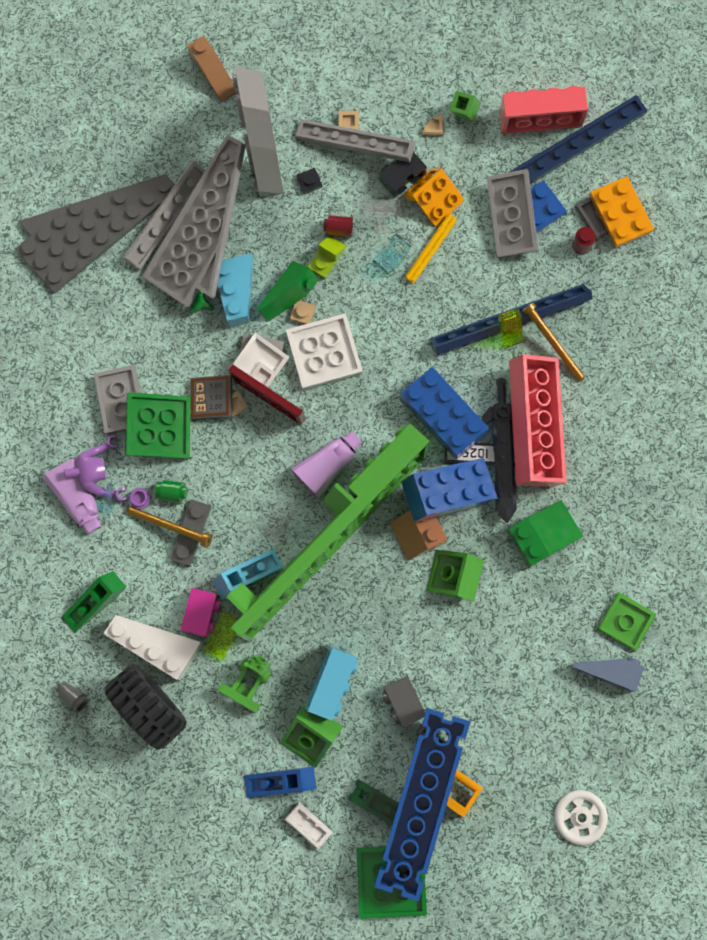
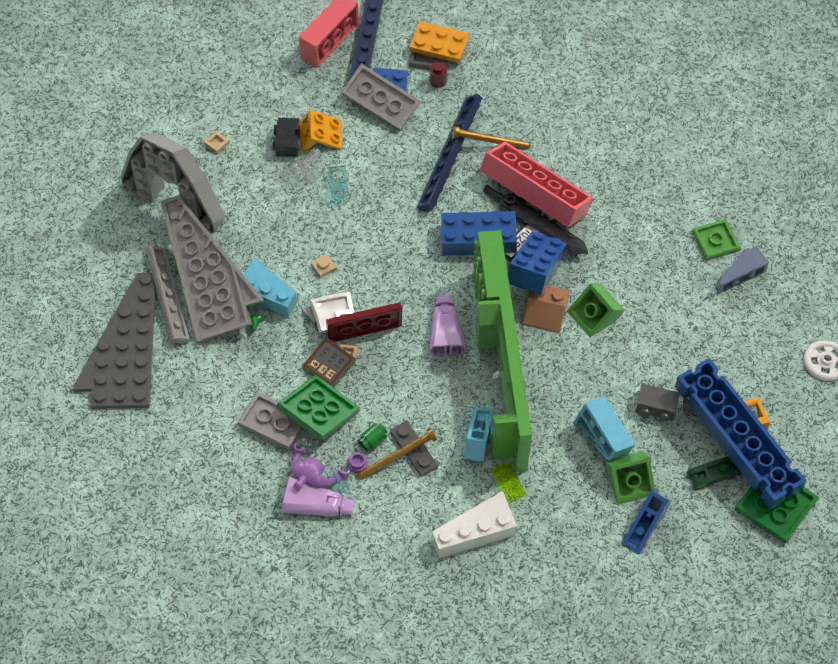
camera: 55 degrees left, 20 degrees down
(74, 698) = (464, 613): dark grey cone -> none
(94, 600) = (406, 547): green slope -> none
(145, 707) = (520, 552): black tyre -> none
(200, 613) = (477, 477): dark pink piece -> none
(211, 68) = (91, 189): medium nougat slope -> none
(241, 693) = (554, 475): bright green tile -> none
(289, 289) = (301, 258): green slope -> none
(308, 825) = (693, 526): white plate -> none
(309, 181) = (234, 194): black plate -> none
(324, 351) = (364, 272): white plate -> none
(327, 256) = (299, 223): lime slope -> none
(338, 226) = (285, 199): dark red brick -> none
(355, 140) = (241, 142): light grey tile -> none
(430, 249) = (355, 161): yellow axle -> none
(434, 127) = (273, 99): tan tile -> none
(465, 106) = (279, 69): bright green brick -> none
(511, 328) = (458, 153): clear neon green tile -> none
(544, 533) = (614, 241): green slope -> none

